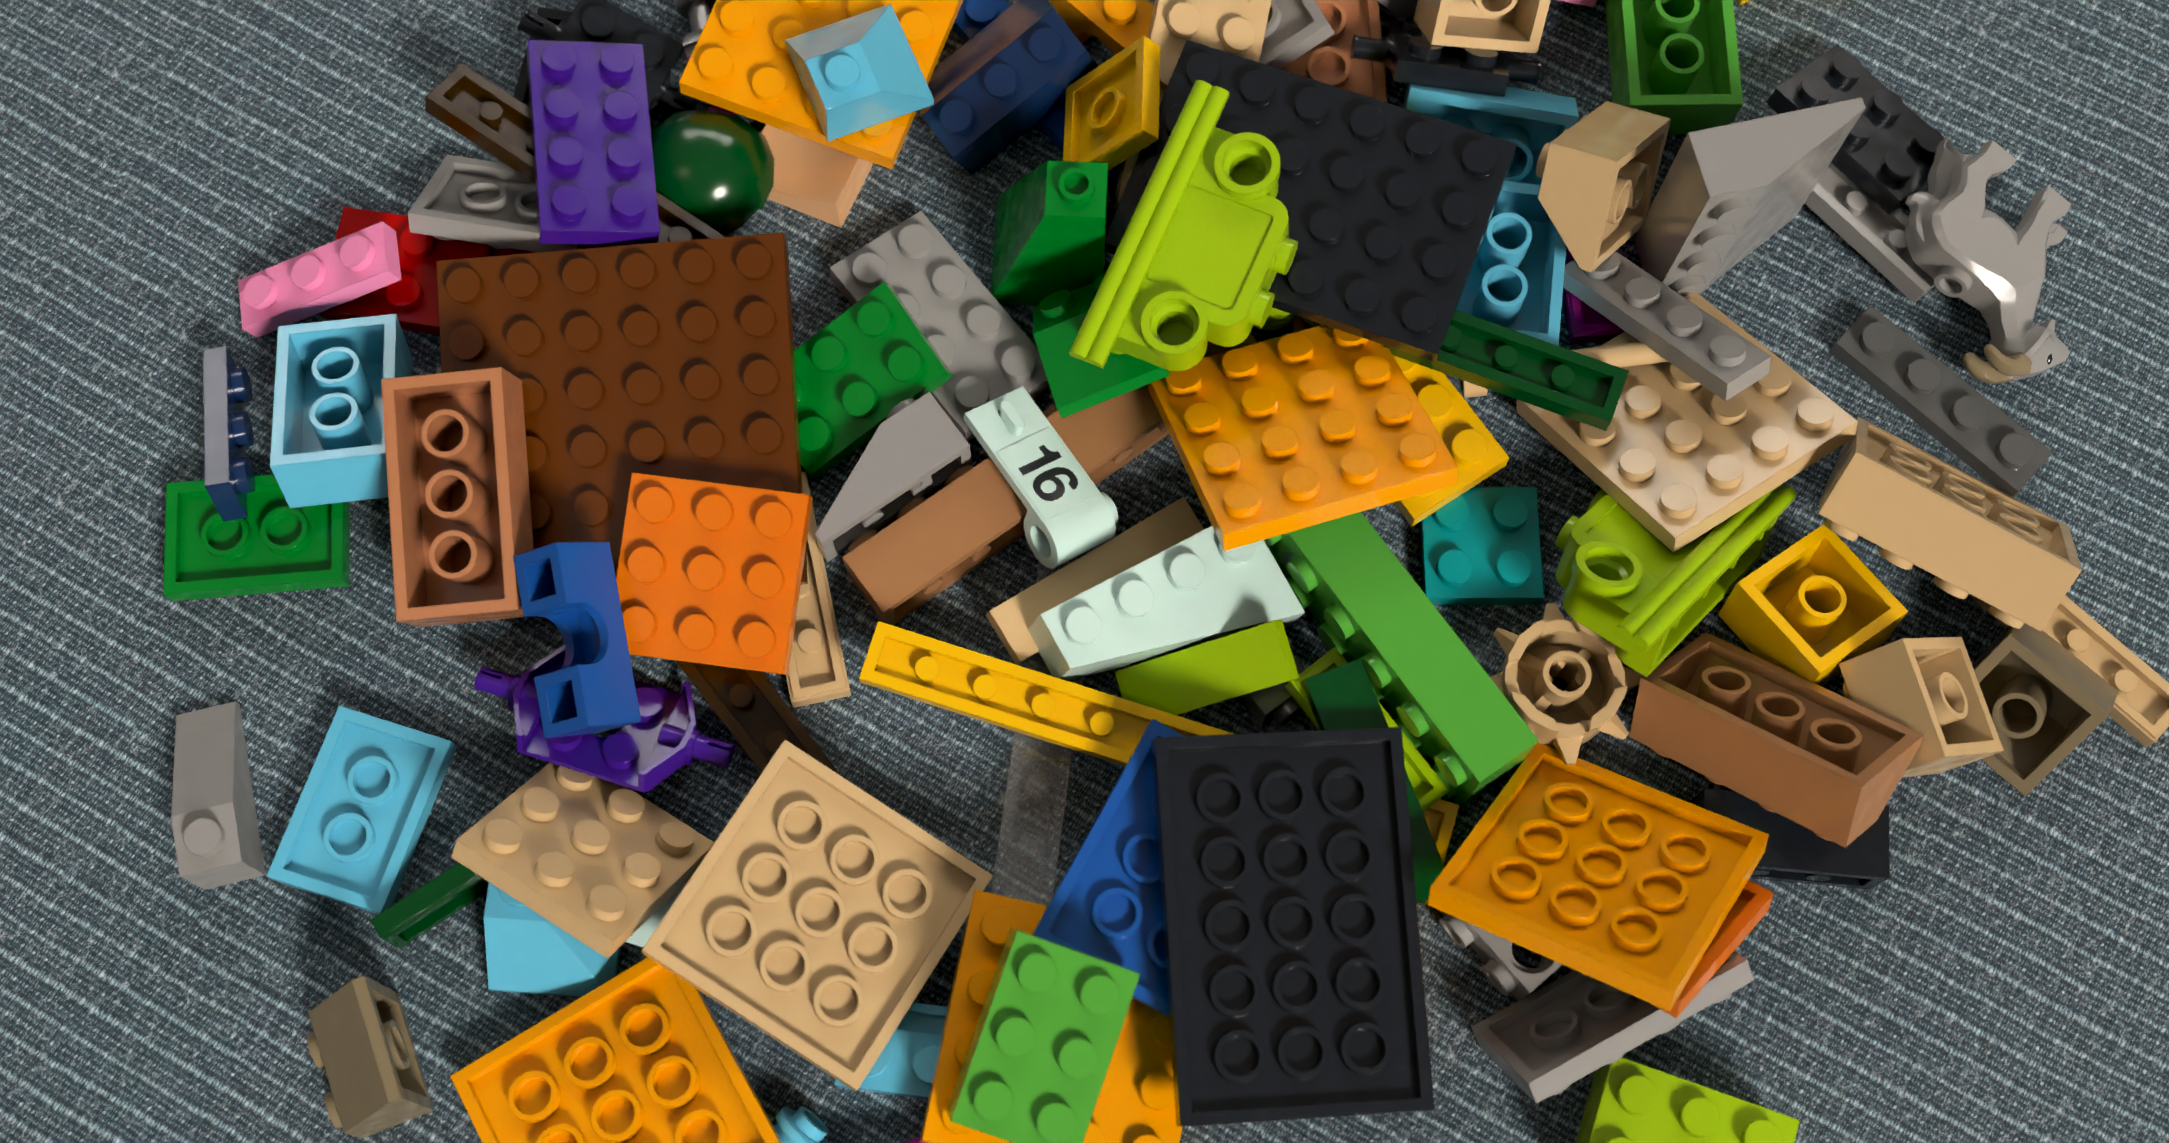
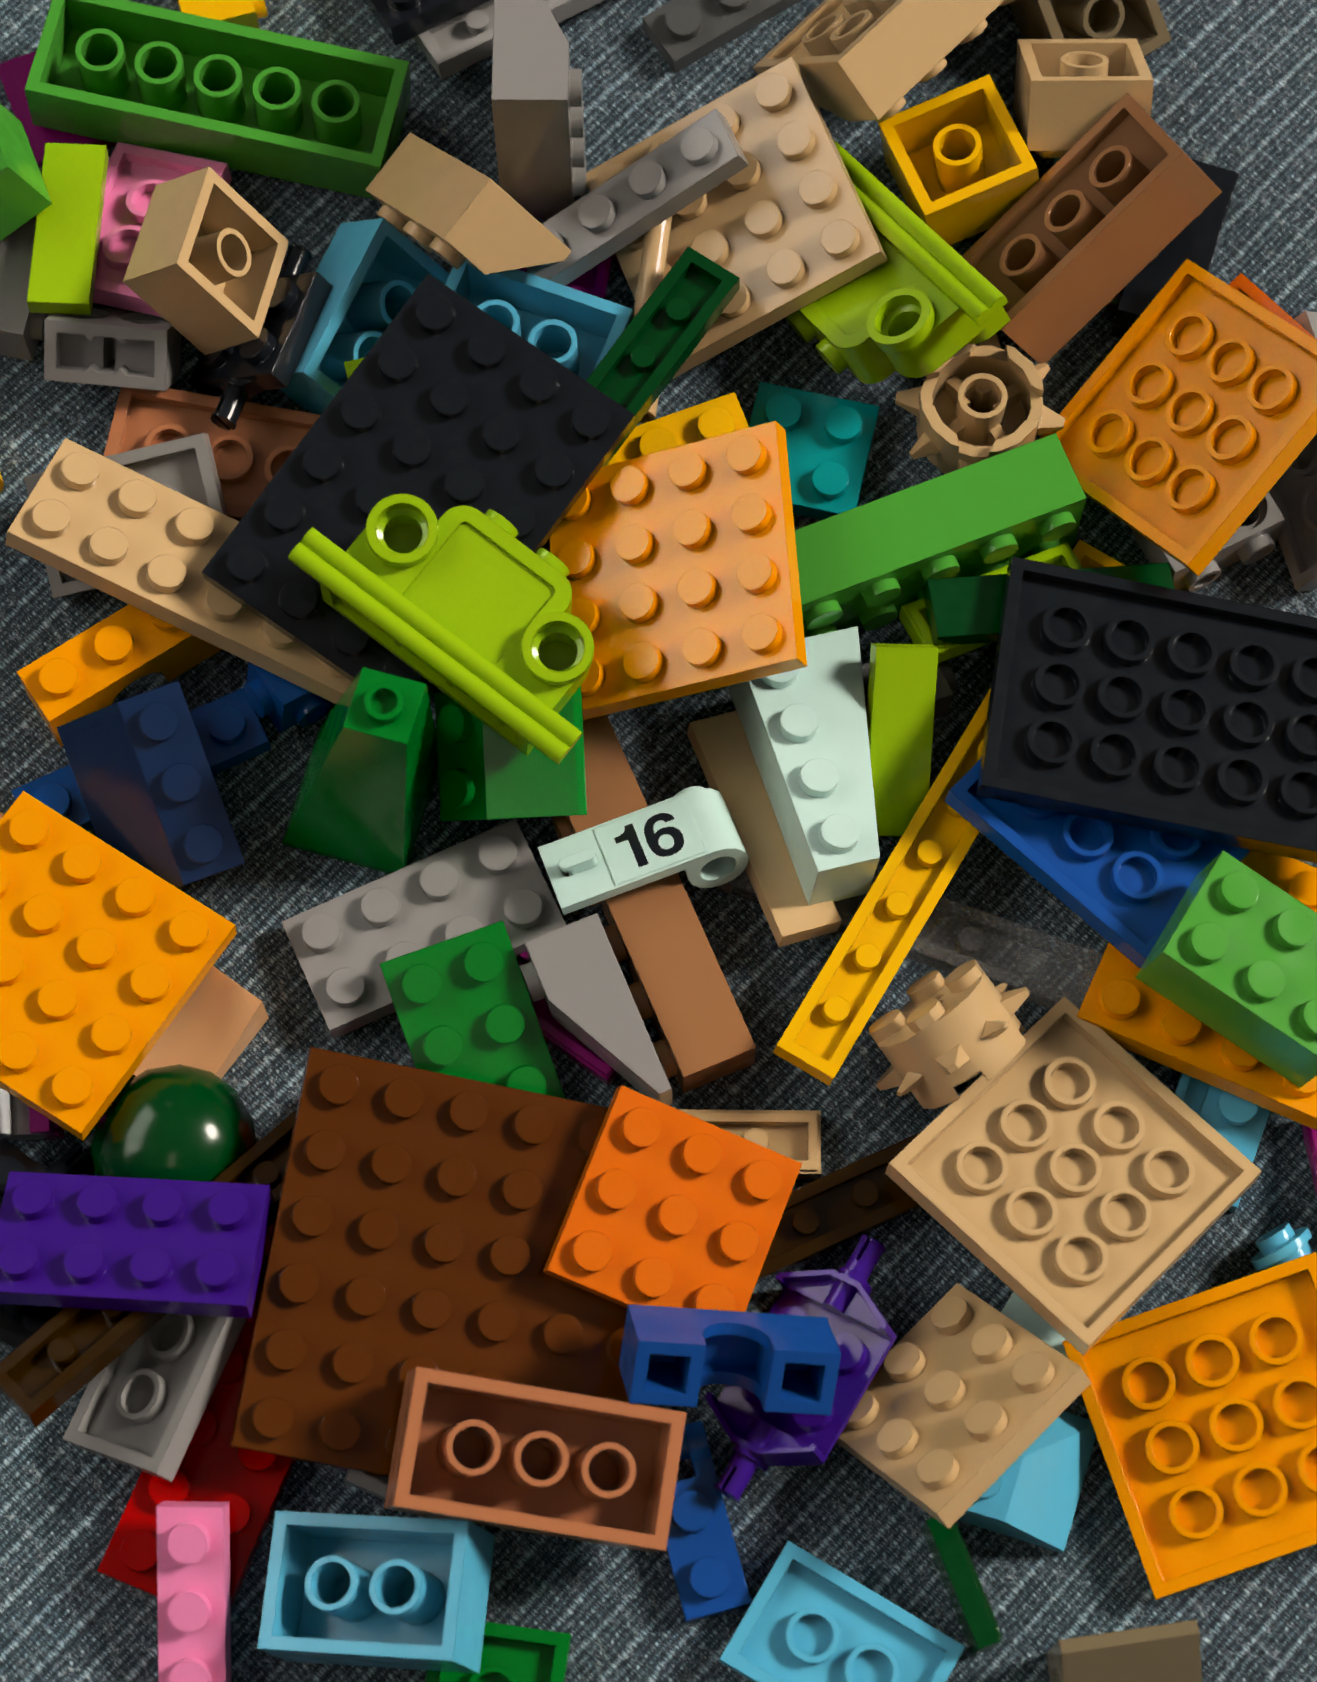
camera: 75 degrees left, 0 degrees up
(448, 669) = (702, 1540): none -> blue plate
(859, 72) = (126, 931): medium azure slope -> none
(928, 776) = (949, 1034): none -> tan brick
(1114, 107) = (258, 673): yellow plate -> none

